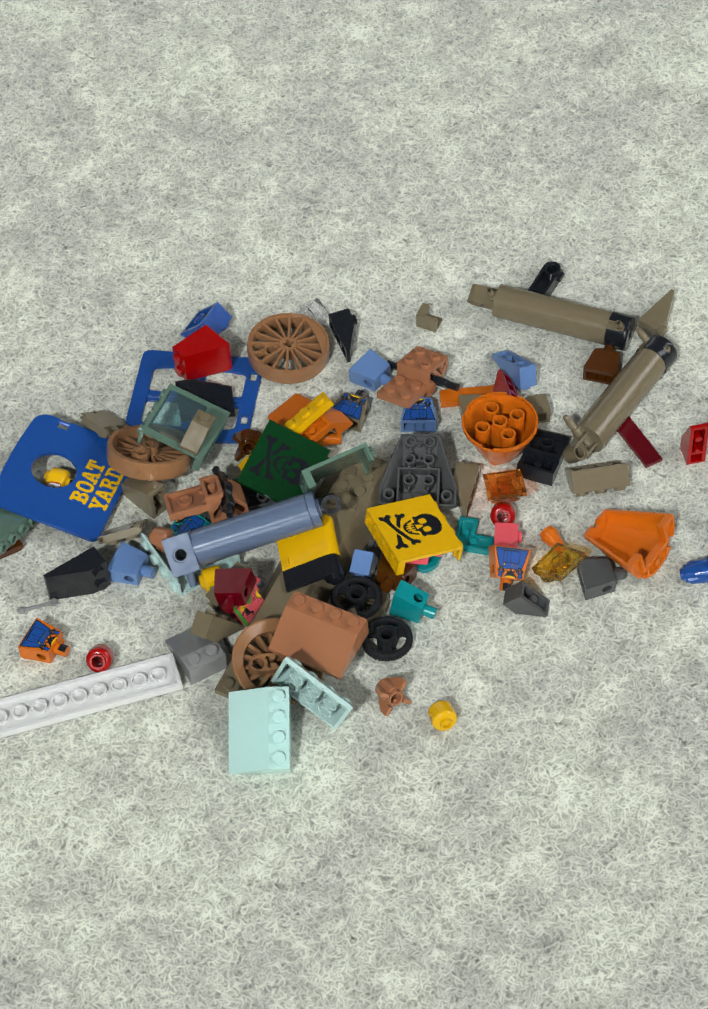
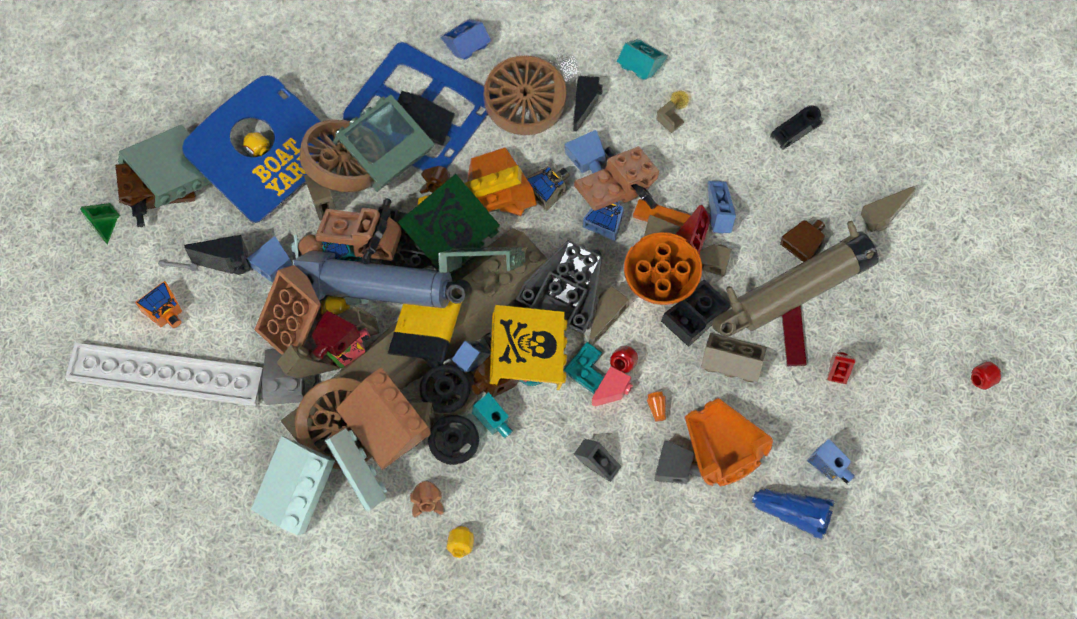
camera: 25 degrees right, 15 degrees up
(99, 658) = (198, 344): red head -> none
(102, 422) = (322, 105): dark tan plate -> none
(126, 531) = (280, 226): dark tan plate -> none
(178, 587) = (288, 310): none -> nougat slope
(197, 432) = (386, 158): dark tan slope -> none
(201, 354) = (439, 71): red slope -> none
(375, 284) = (641, 58): none -> teal slope
(429, 300) = (680, 99): none -> clear yellow tile
(504, 486) = (637, 334): clear orange slope -> none
(507, 564) = (598, 415): torso -> none
(555, 315) = (788, 168): dark tan piece -> none
(558, 563) = (644, 435): clear yellow slope -> none

